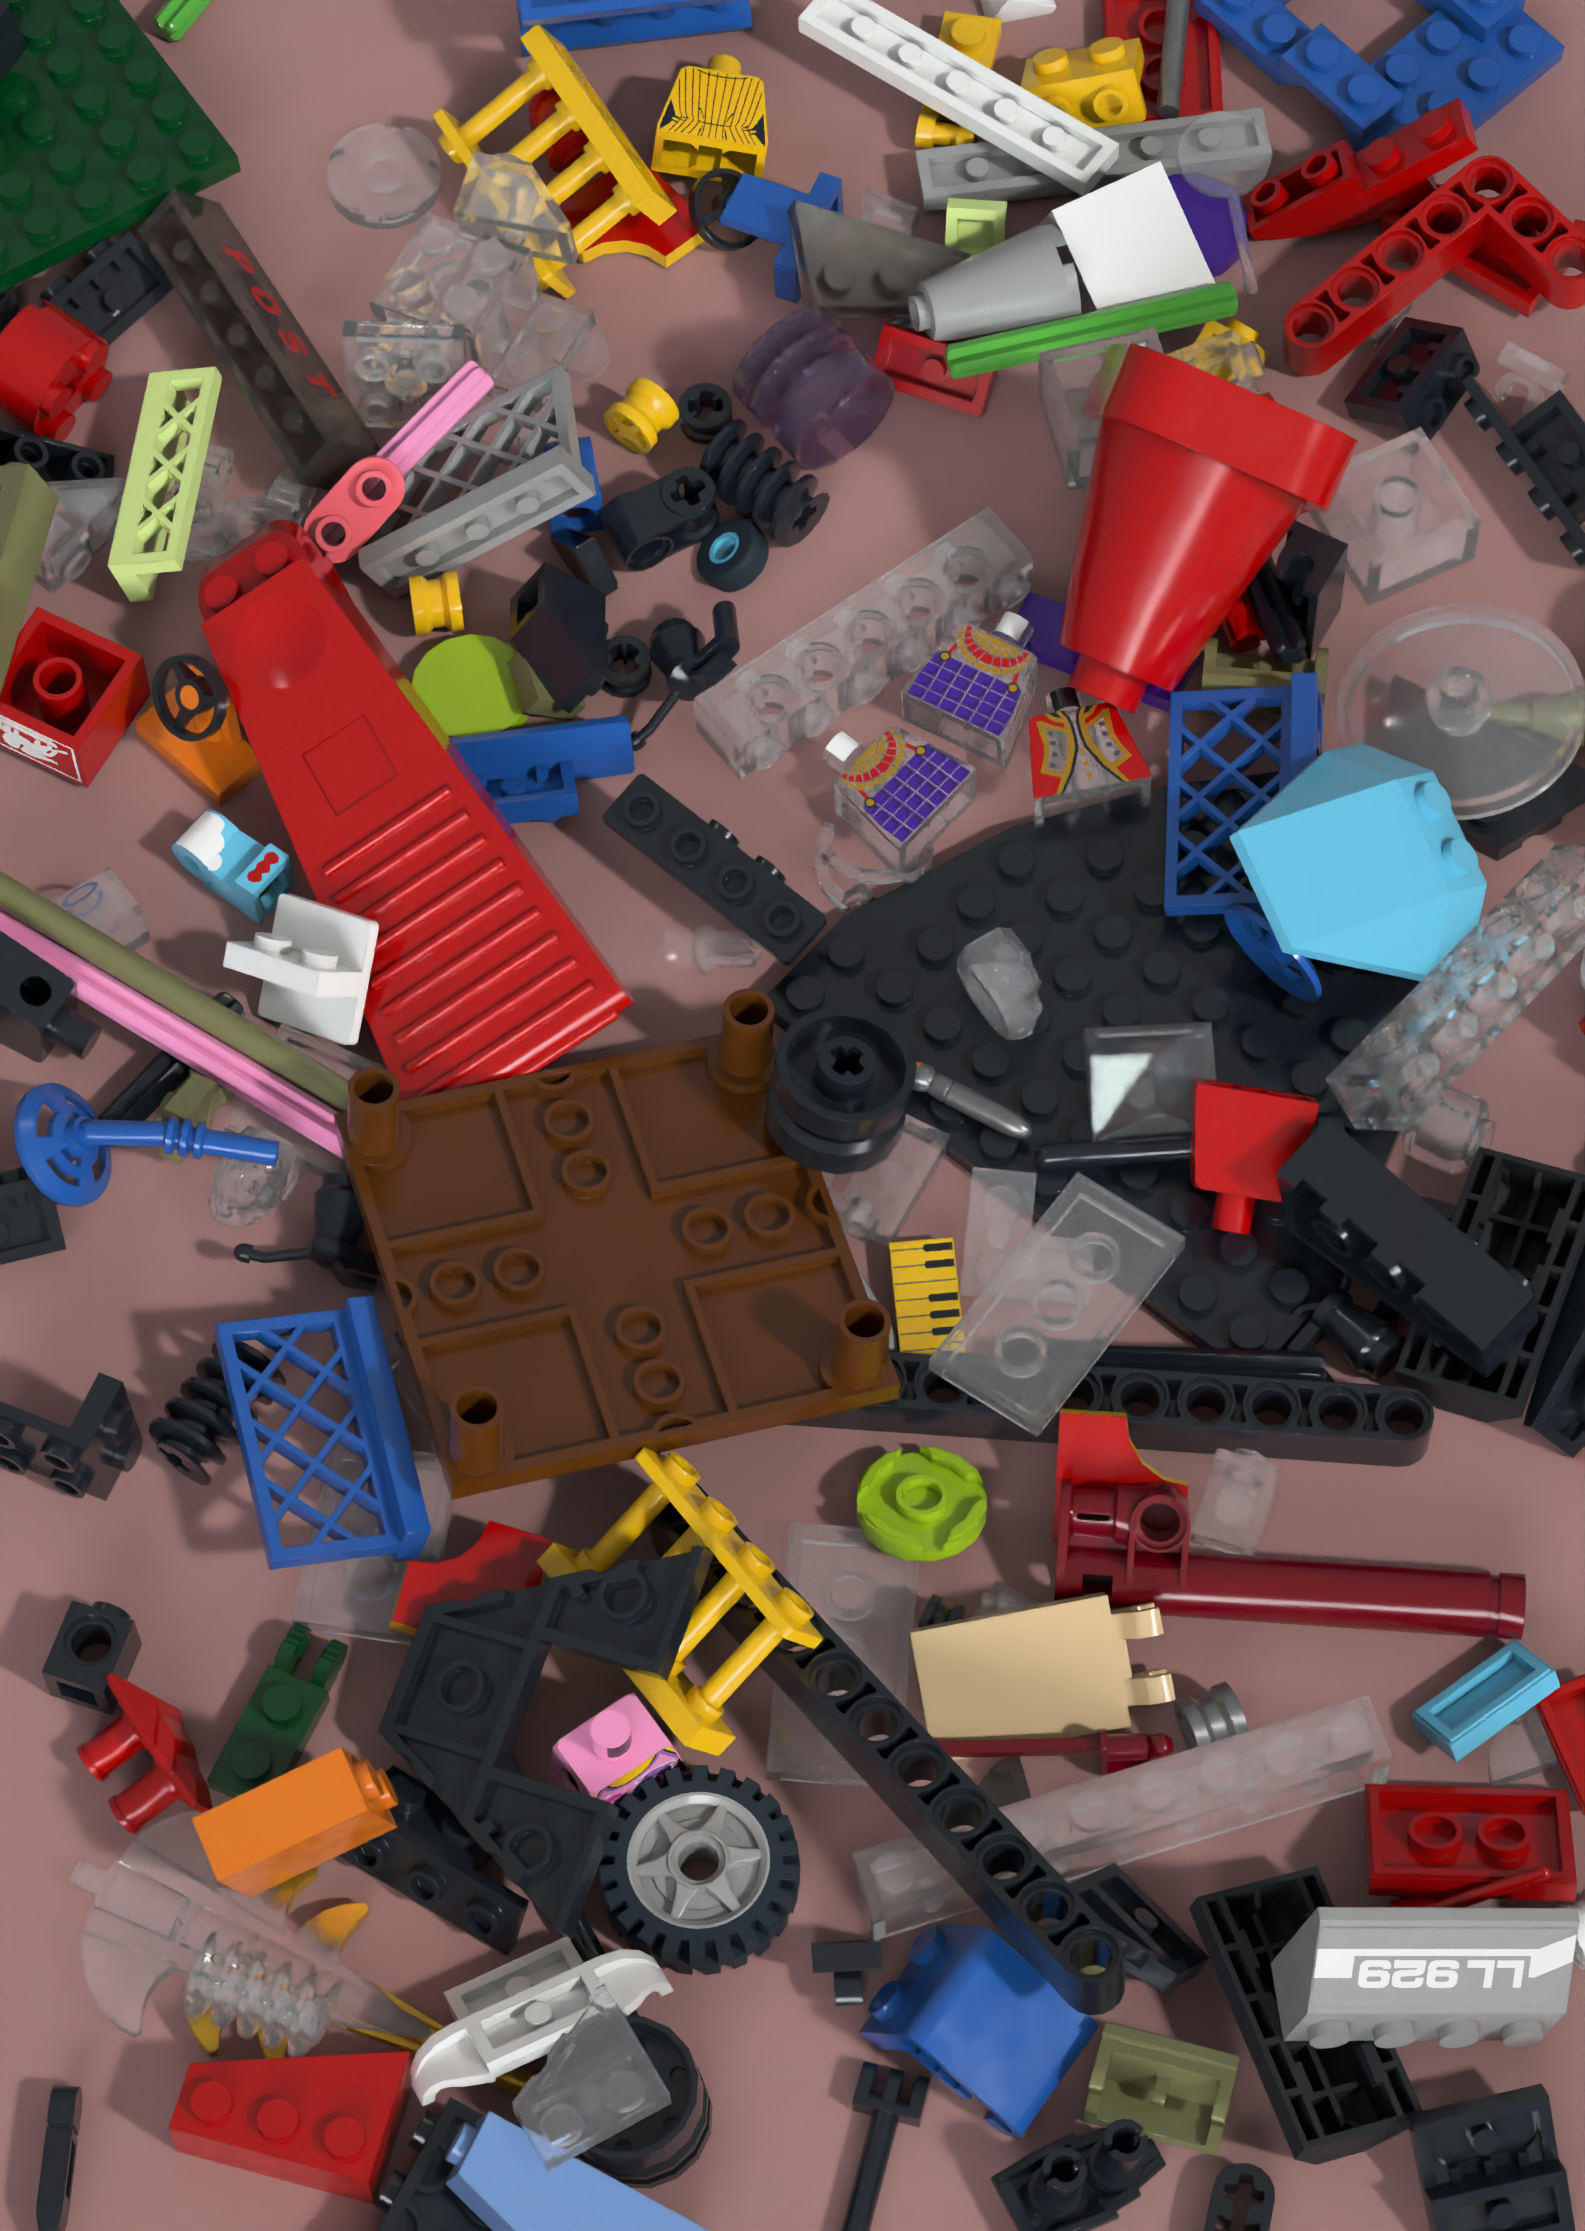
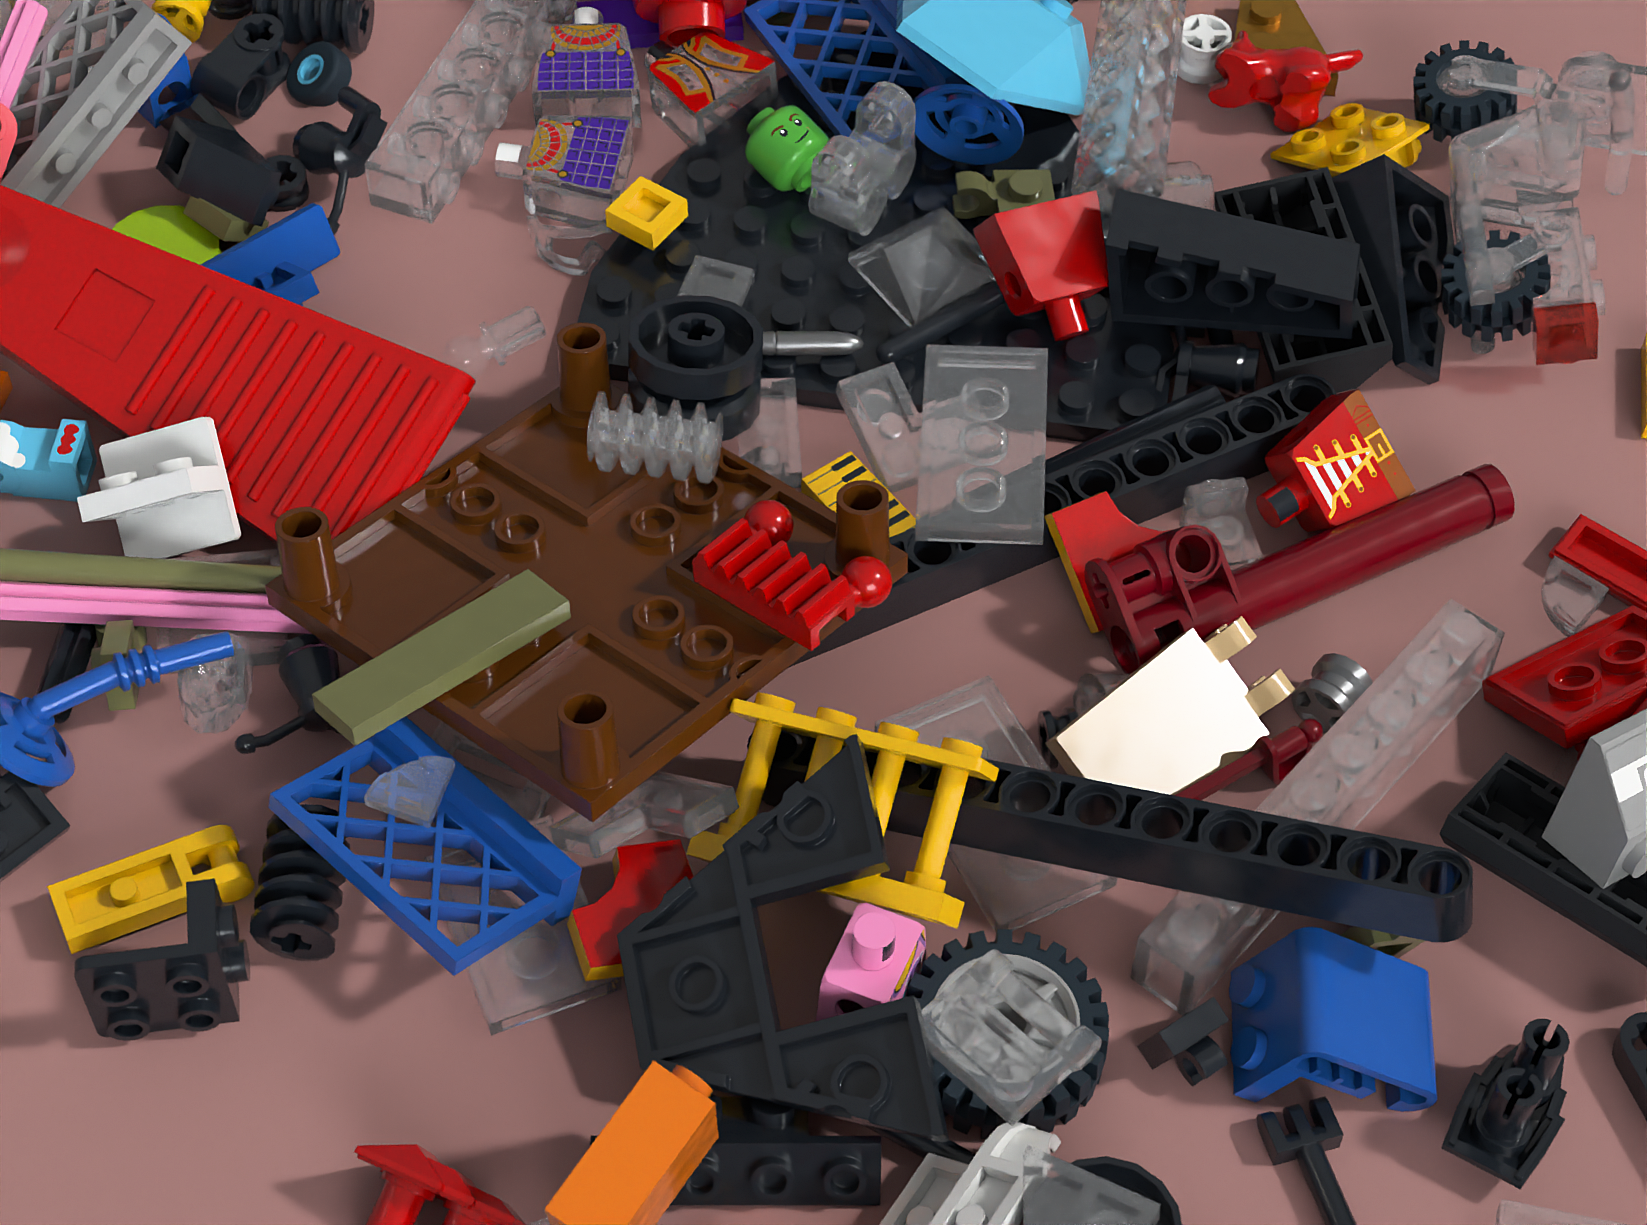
camera: 35 degrees left, 10 degrees down
(83, 1680) = (324, 1178): black brick -> none
(97, 1340) = (147, 887): none -> yellow plate
(277, 1717) = (531, 1121): dark green hinge -> none
(334, 1383) = (412, 789): none -> clear tile
(426, 1274) = (441, 657): none -> olive tile
(436, 603) = (93, 197): yellow wheel -> none
(553, 1510) = (660, 803): none -> clear tile
(655, 1881) = (991, 1051): none -> clear plate
(715, 870) = (468, 271): black bracket -> none
(749, 1151) = (654, 439): none -> clear piece
(755, 1361) = (758, 575): none -> red gear
(919, 887) = (646, 213): none -> yellow plate
(921, 1504) = (974, 653): lime tile -> none
(933, 1002) = (717, 280): none -> clear tile
(1002, 982) = (760, 241): clear rock -> none
(1095, 884) = (784, 147): none -> bright green head
(1162, 947) = (874, 163): none -> clear piece
(1164, 2085) = (1505, 986): olive hinge -> none
(1284, 1051) = (1005, 192): none -> olive plate
(1369, 1503) = (1332, 467): none -> torso
(1485, 1700) = (1523, 572): medium azure tile -> none

